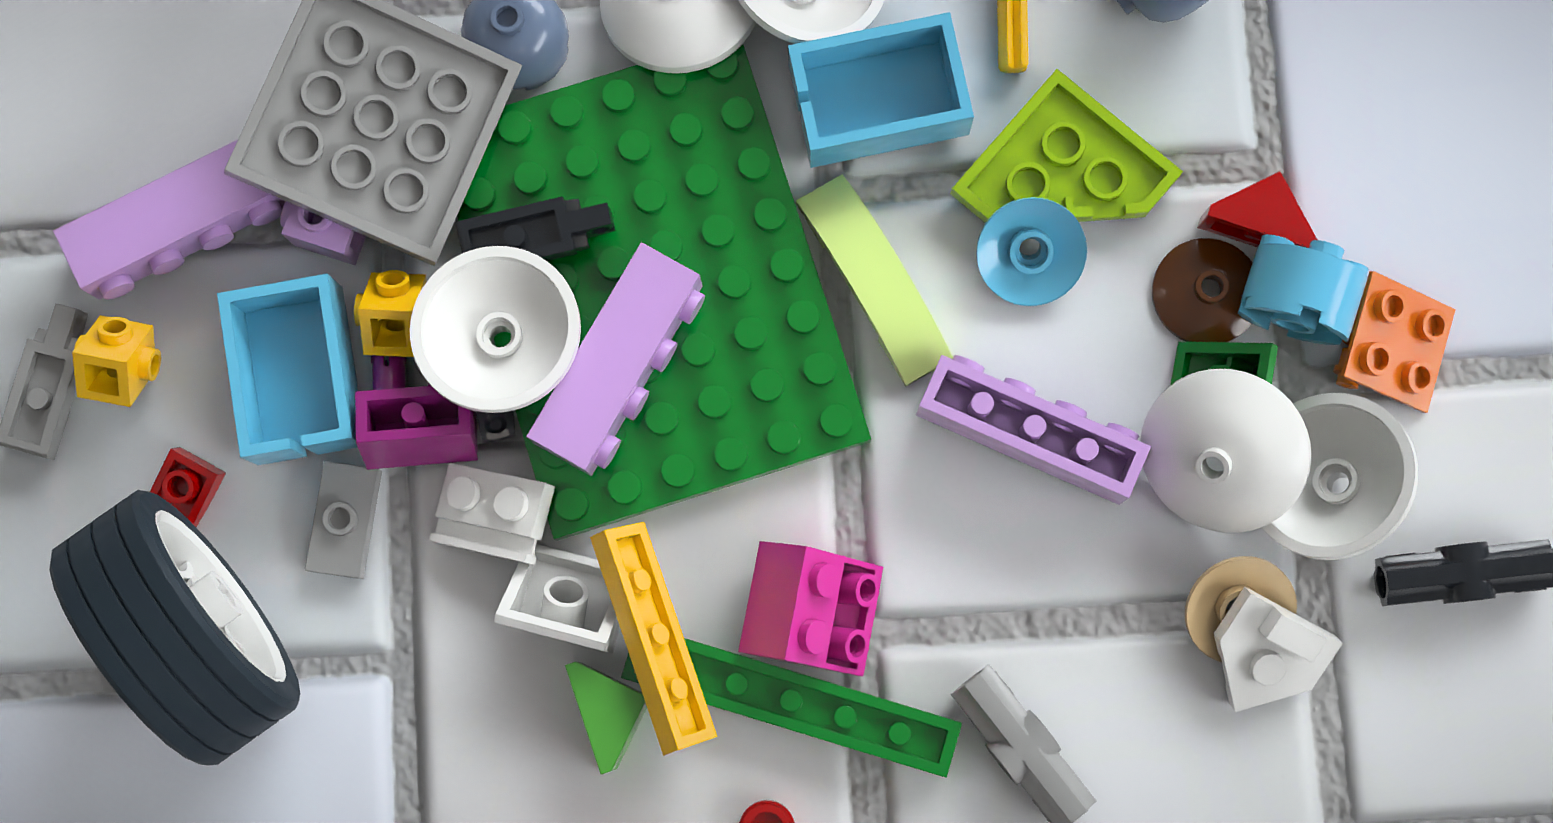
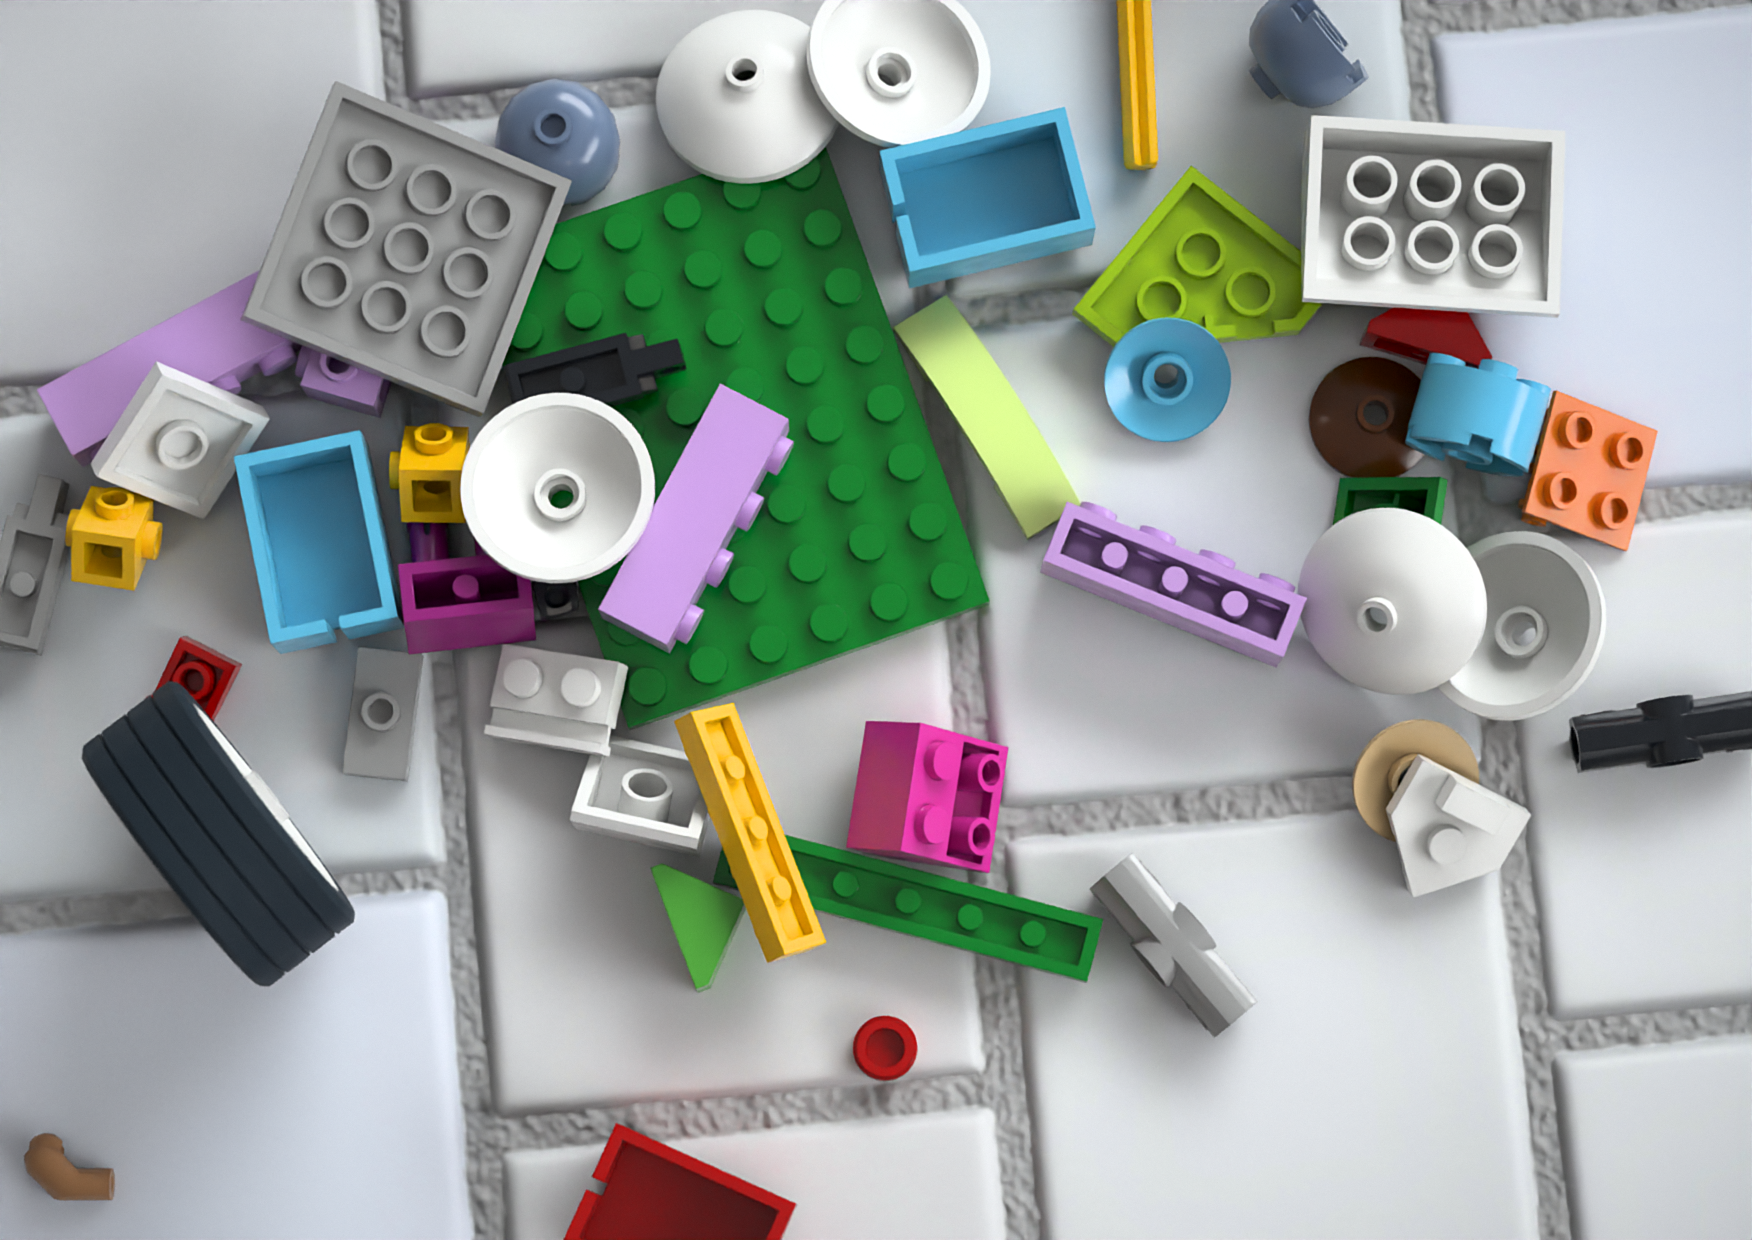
camera: 10 degrees left, 0 degrees up
(172, 278) = (179, 440): none -> white plate
(1268, 115) = (1432, 216): none -> white slope

